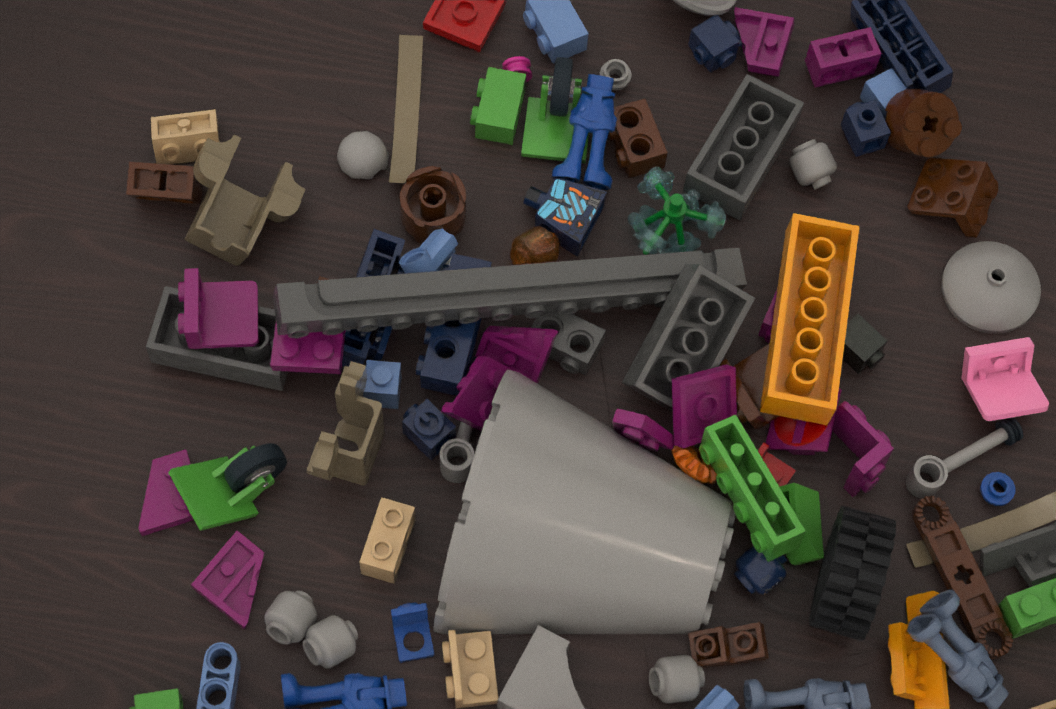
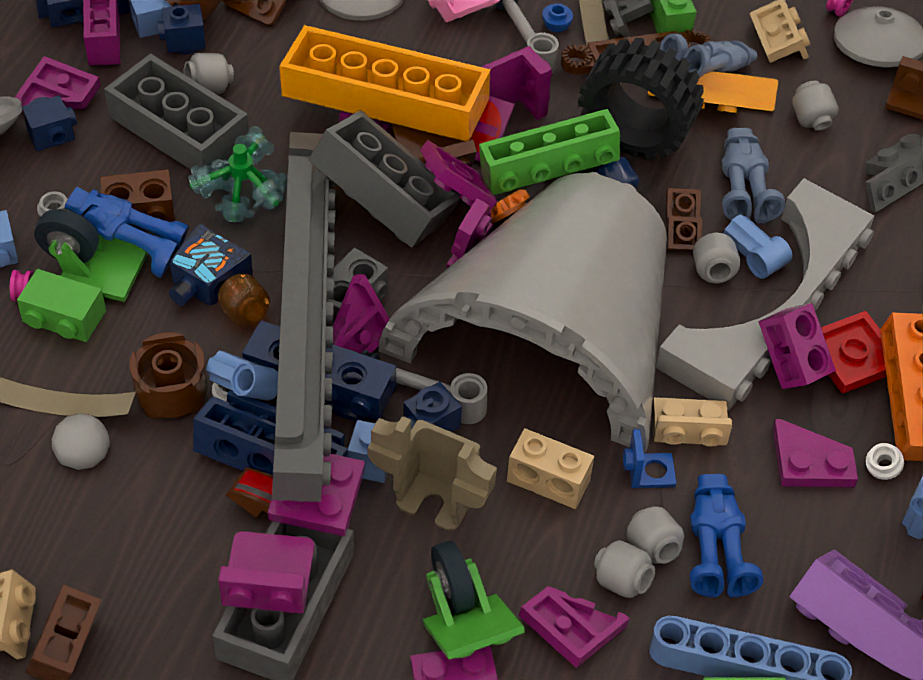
camera: 80 degrees left, 15 degrees down
(230, 215) = (135, 570): dark tan piece -> none
(476, 392) = (389, 350): magenta wing -> none

